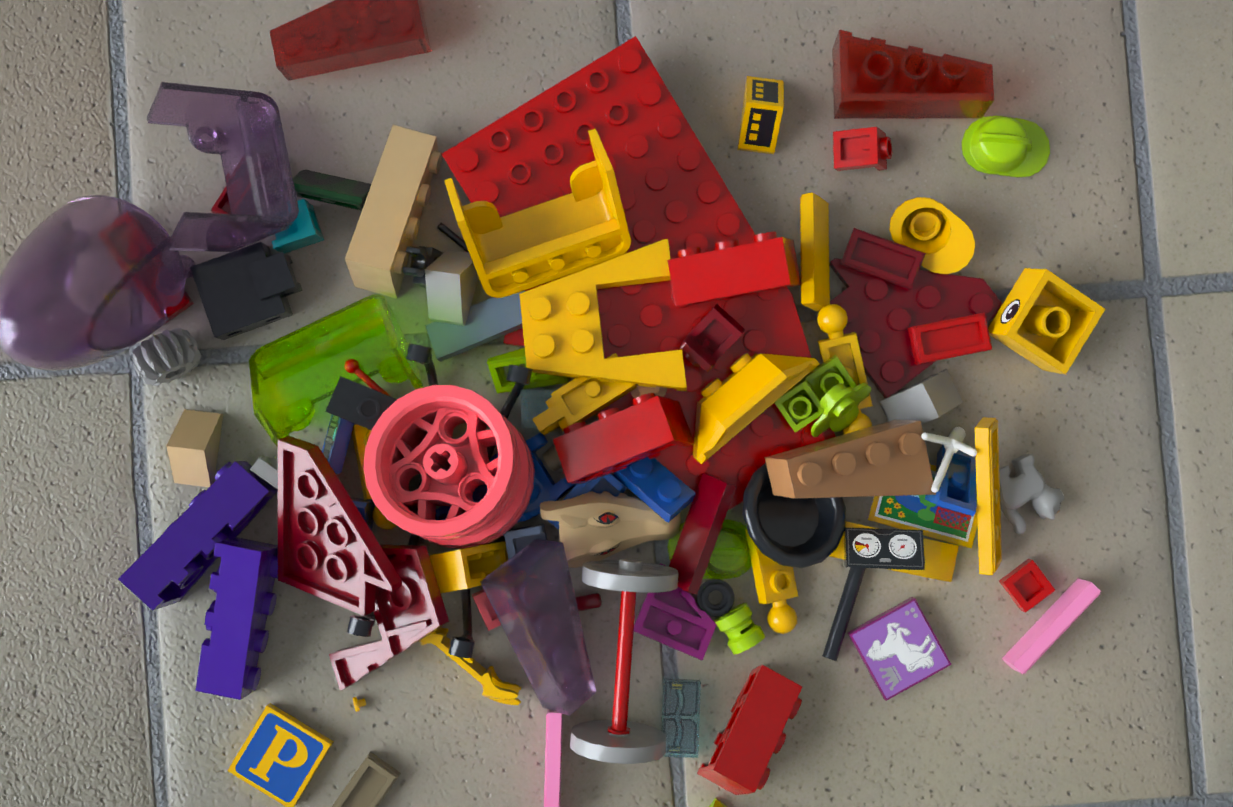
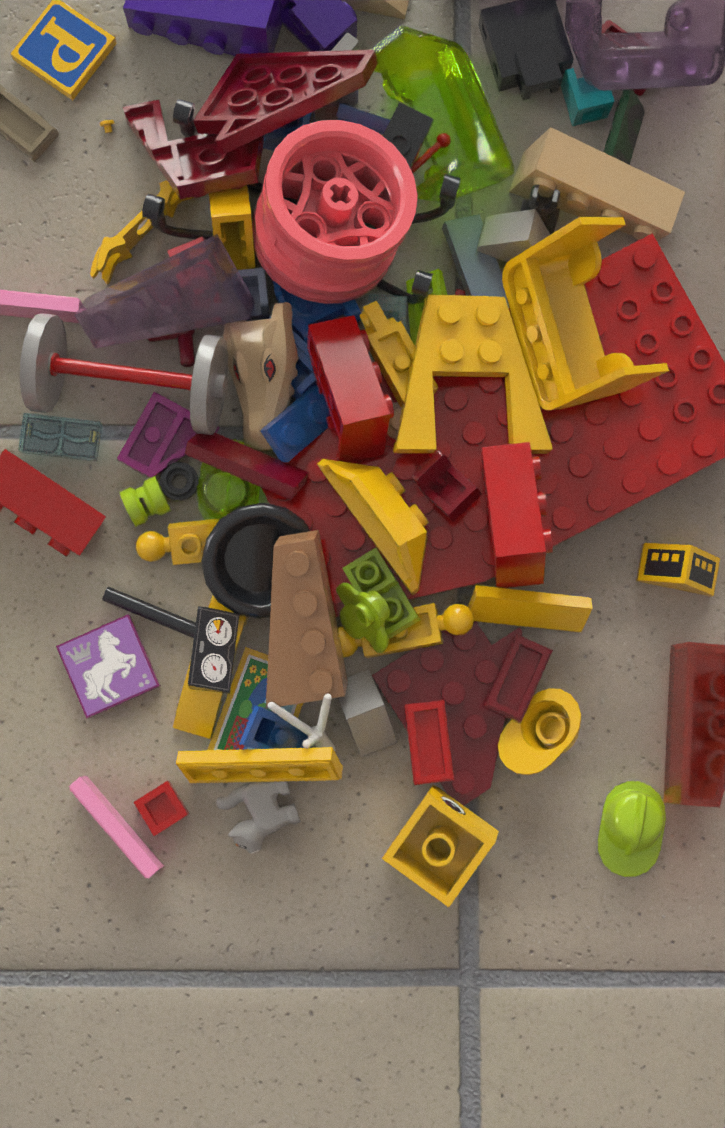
camera: 90 degrees right, 5 degrees down
(861, 149) = (636, 670): red bracket -> none

